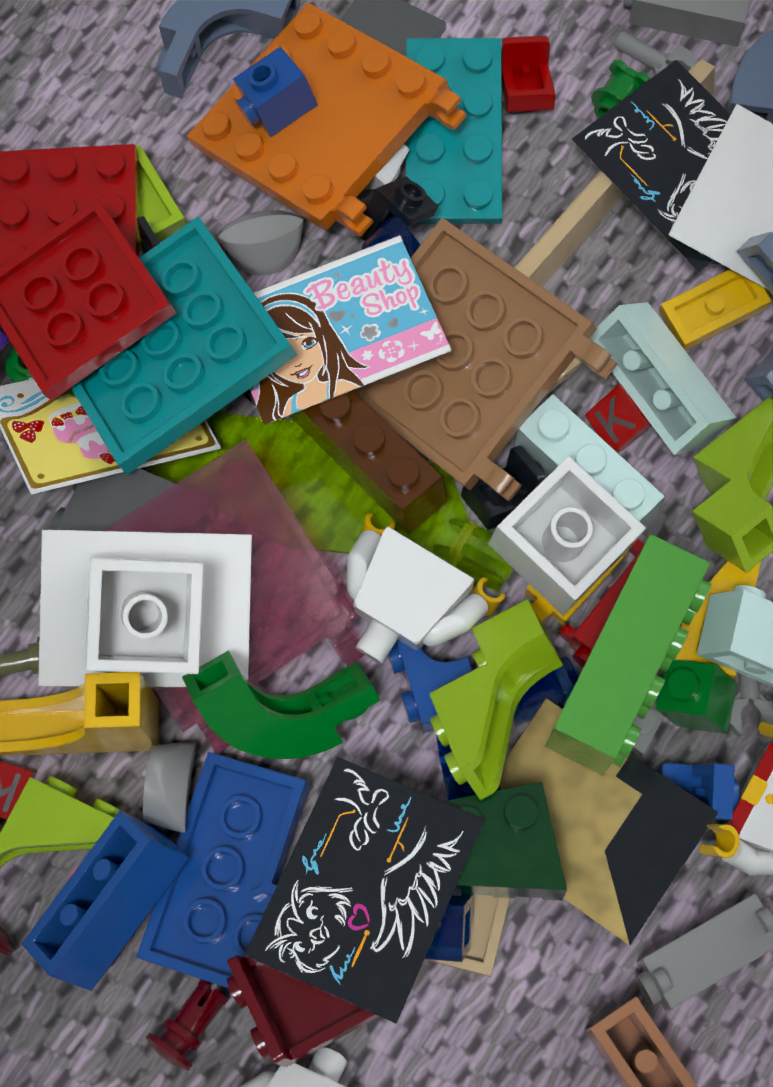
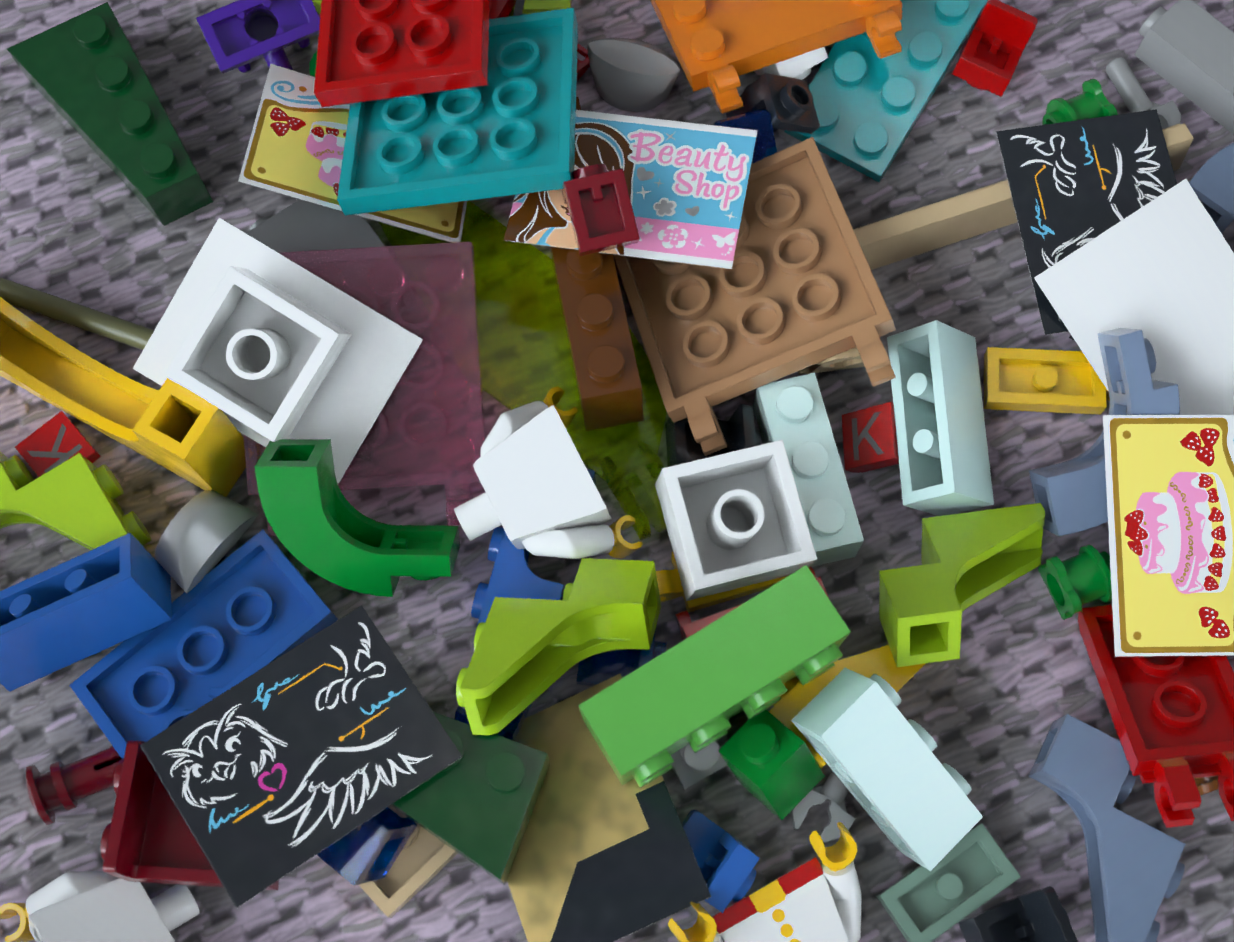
camera: 30 degrees right, 0 degrees up
(328, 360) = (600, 209): none -> dark red bracket

